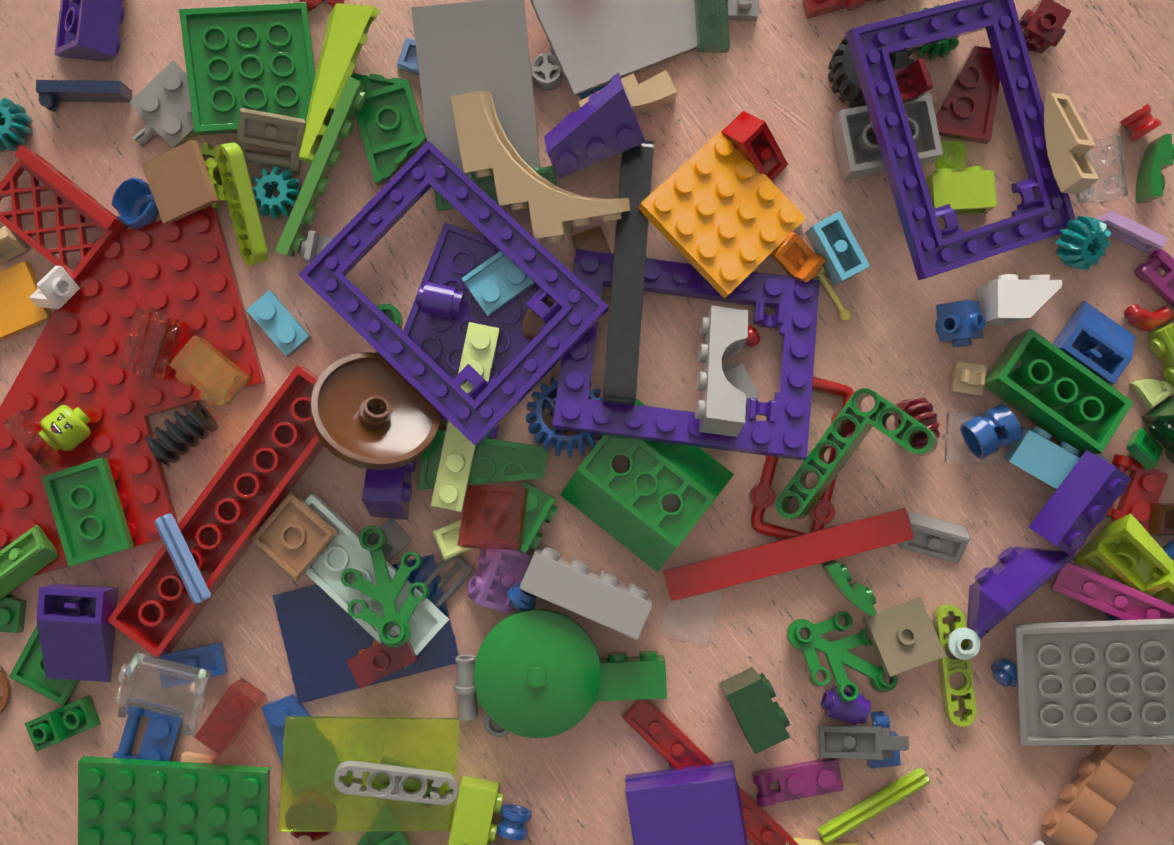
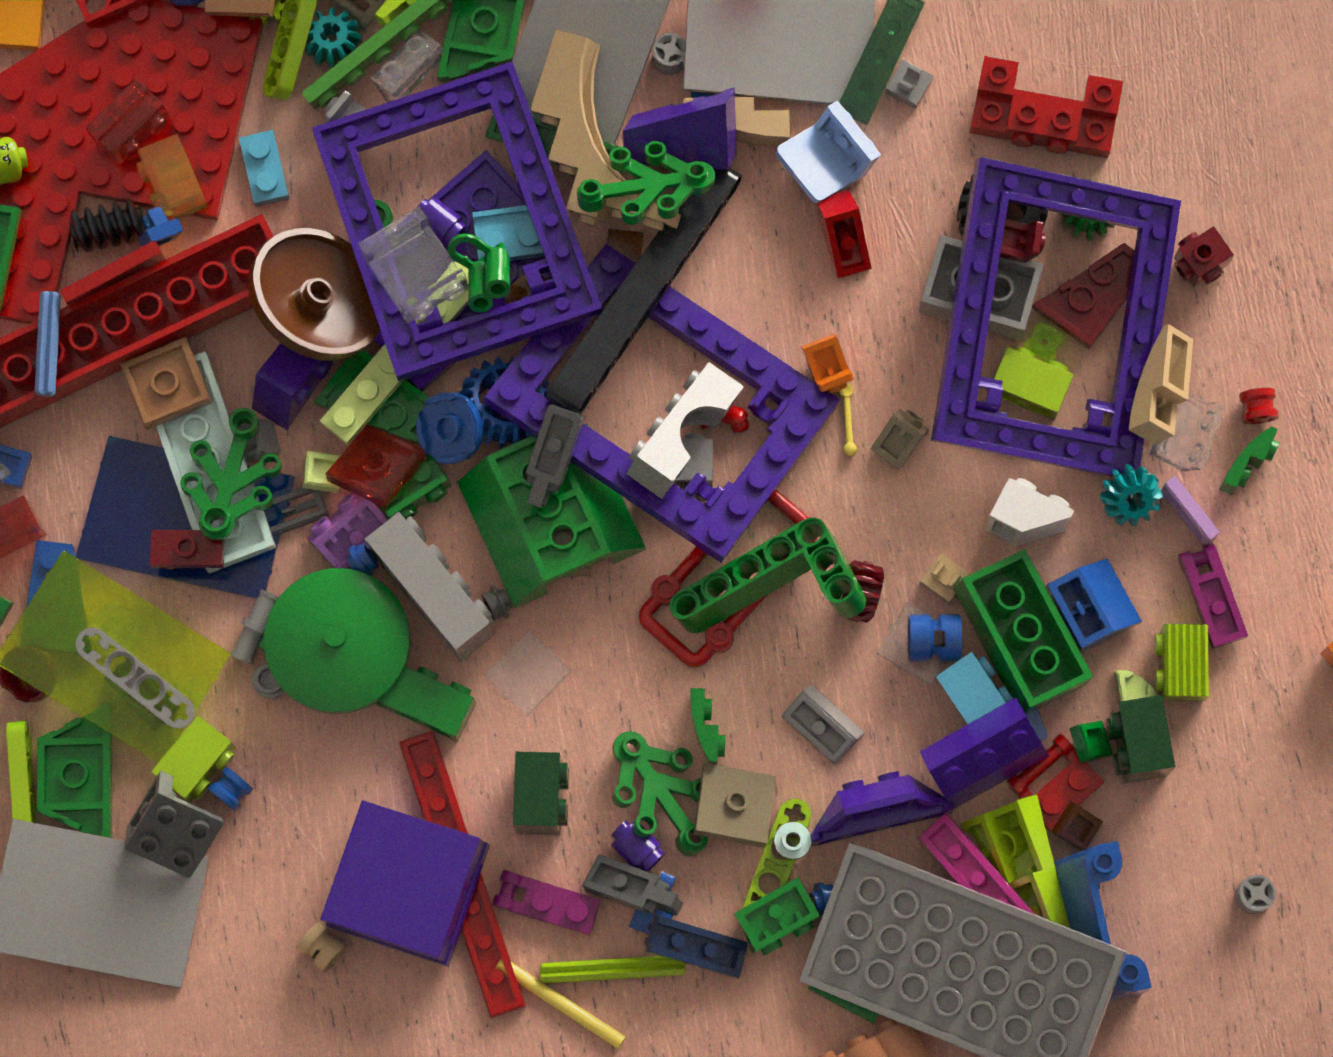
camera: 30 degrees right, 10 degrees down
(54, 289) = (62, 22): white bracket -> none
(211, 464) = (114, 272): none -> red tile
(221, 419) = (159, 228): none -> blue tile
(348, 186) = (407, 67): none -> clear bracket
(441, 349) = (413, 266): none -> clear panel
(503, 325) = (486, 277): none -> green piece
(536, 460) = (449, 428): none -> blue tile
(593, 185) = (690, 179): none -> green plant
(632, 444) = (552, 453): none -> dark grey hinge
(640, 573) = (497, 602): none -> dark grey plate
(713, 89) = (828, 154): none -> light blue bracket
(721, 214) = (771, 280): light orange plate -> none
(788, 554) = (658, 659): red tile -> none
(839, 247) = (871, 374): medium azure brick -> none
(881, 287) = (900, 437): none -> dark tan bracket
(930, 761) = (696, 946): none -> dark blue hinge
(959, 322) = (961, 512): blue brick -> none
(982, 707) = (777, 915): none -> green bracket
(1147, 320) = (1162, 611): red arm -> none

